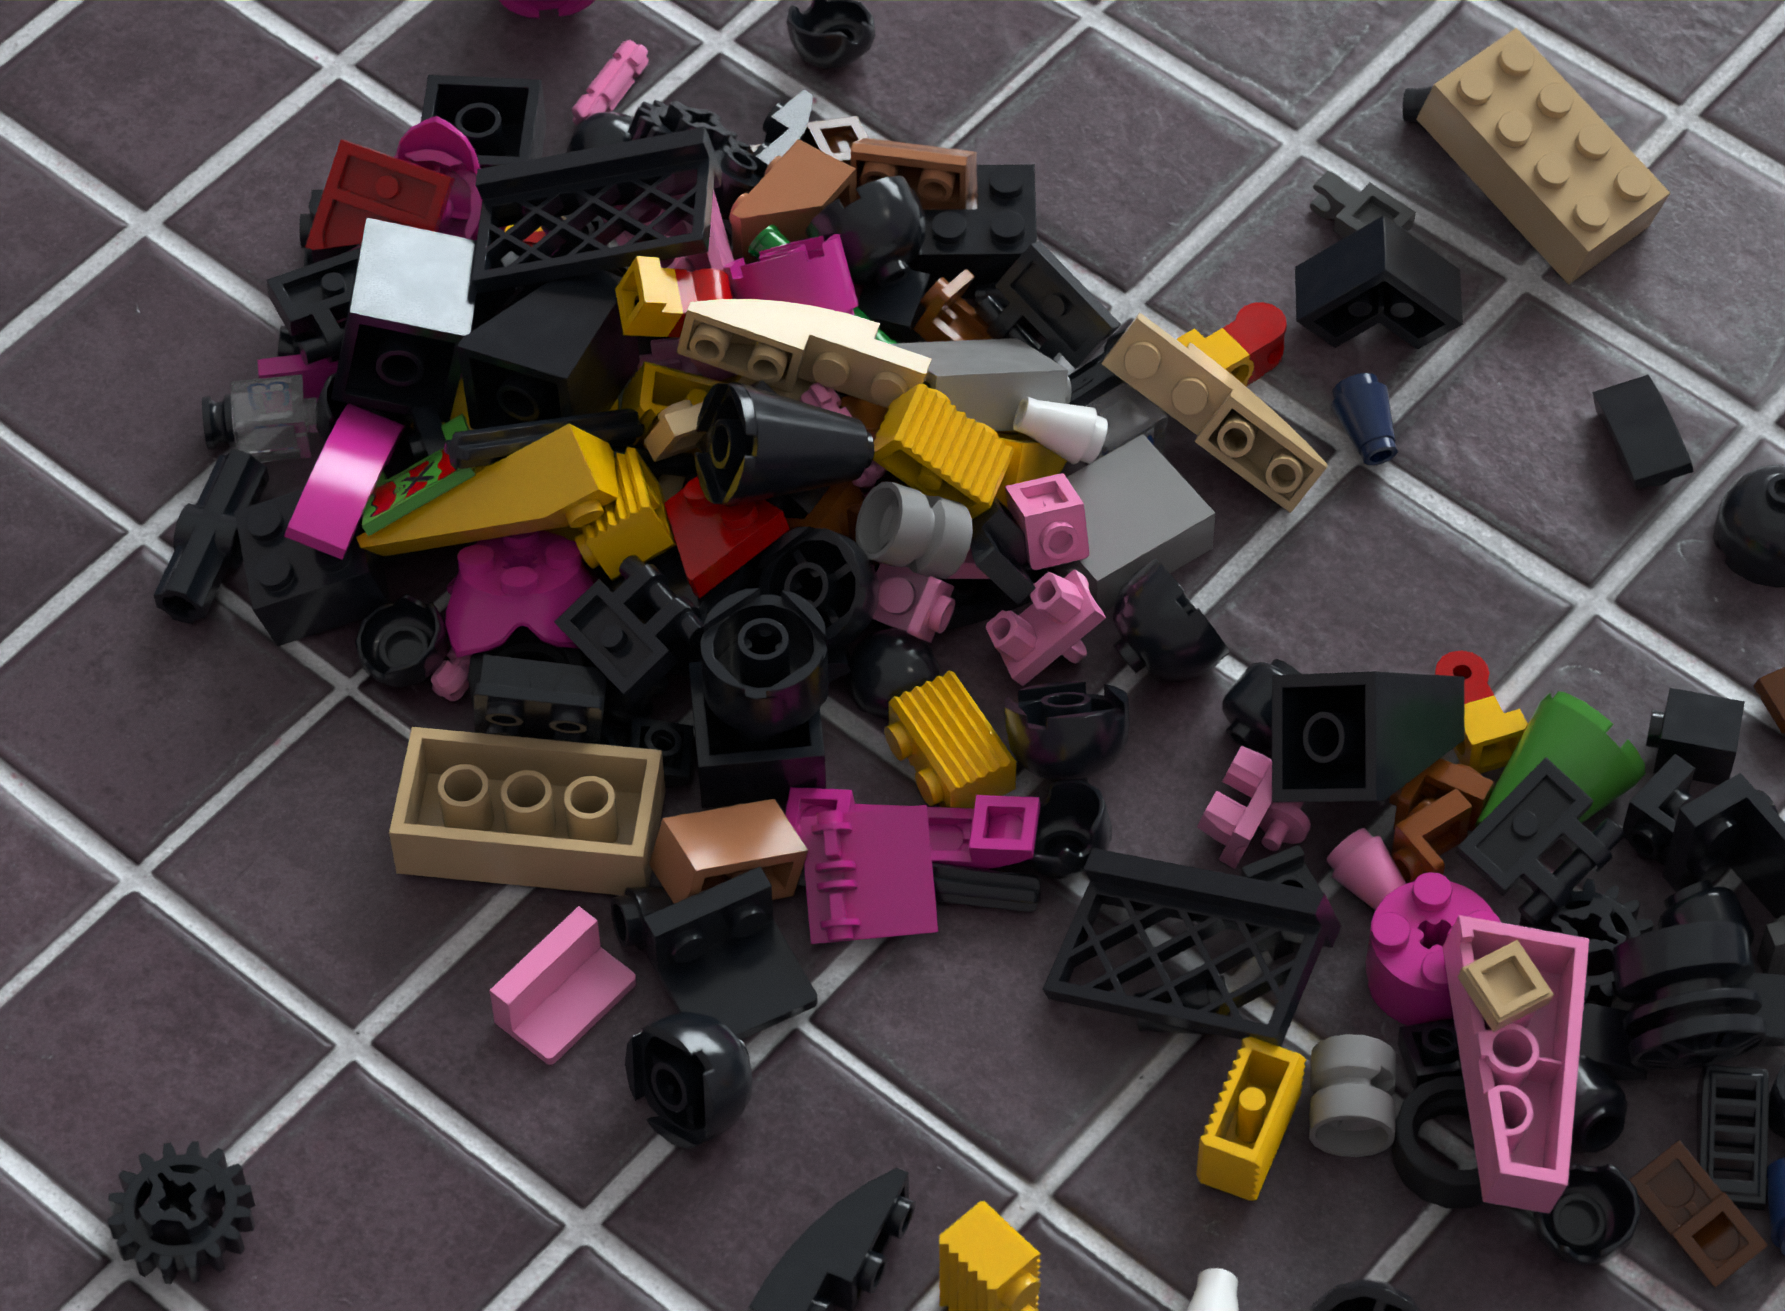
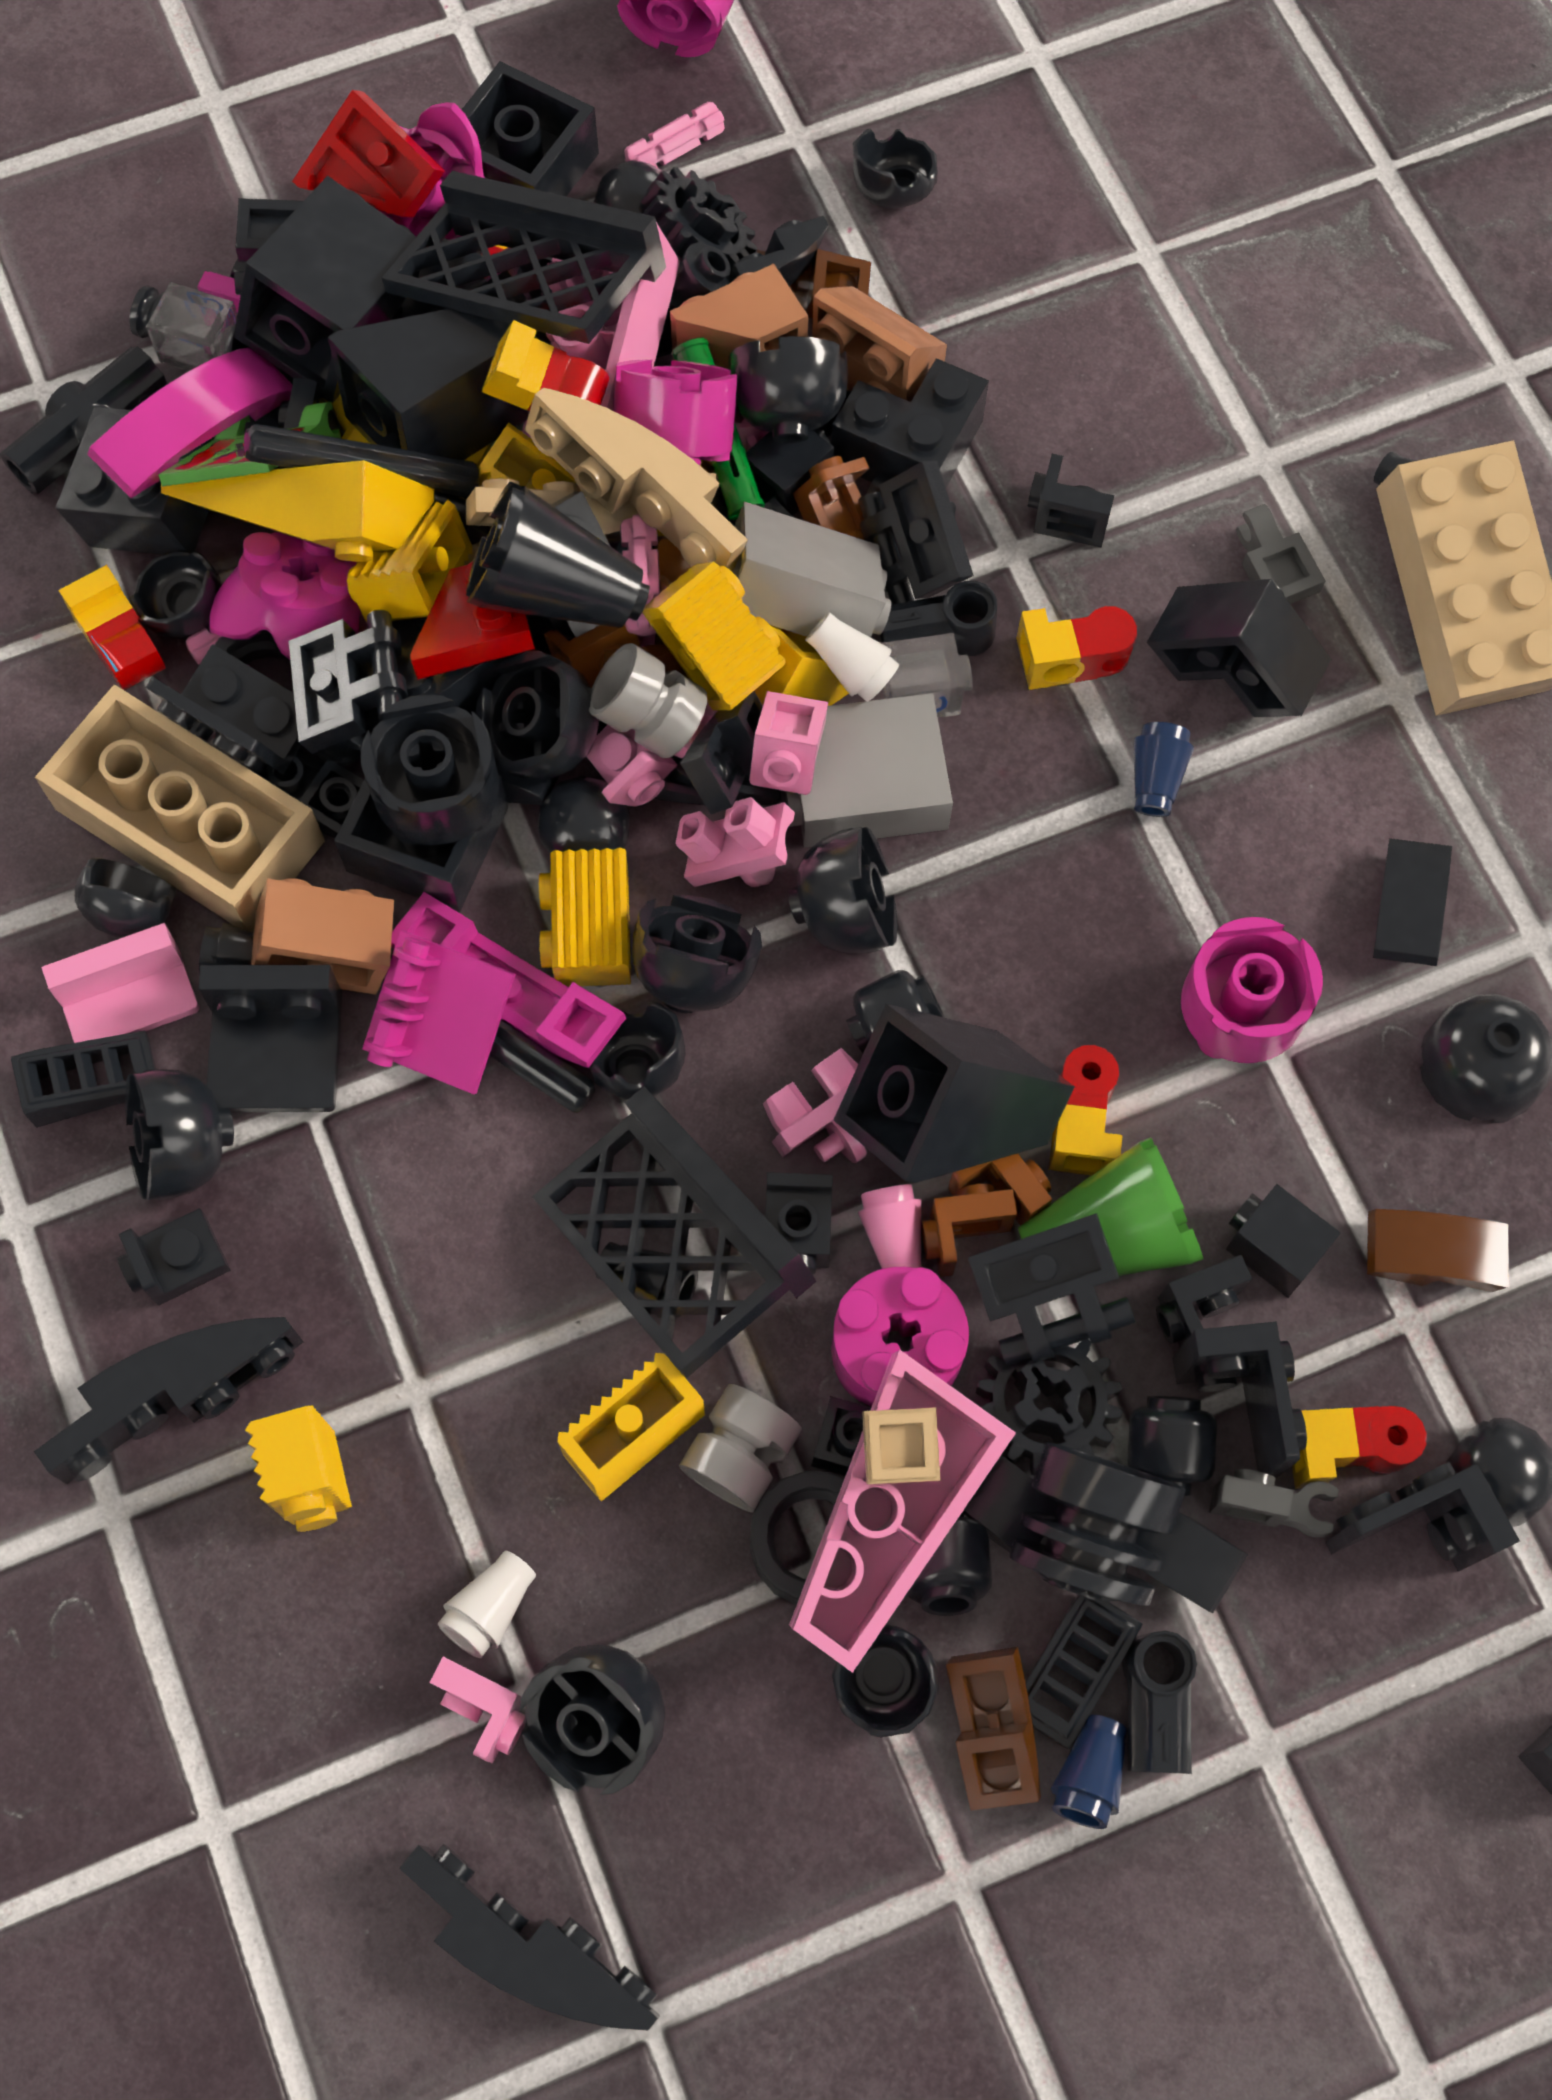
camera: 25 degrees right, 15 degrees up
(358, 698) = (112, 627): none -> leg
(518, 914) = (122, 897): none -> black hair
(556, 1115) = (57, 1060): none -> black slope
(752, 1183) = (172, 1257): none -> black bracket
(1159, 246) = (1067, 510): none -> black bracket
(1218, 409) = (1023, 704): tan slope -> none
(1554, 555) = (1279, 998): none -> dark pink brick

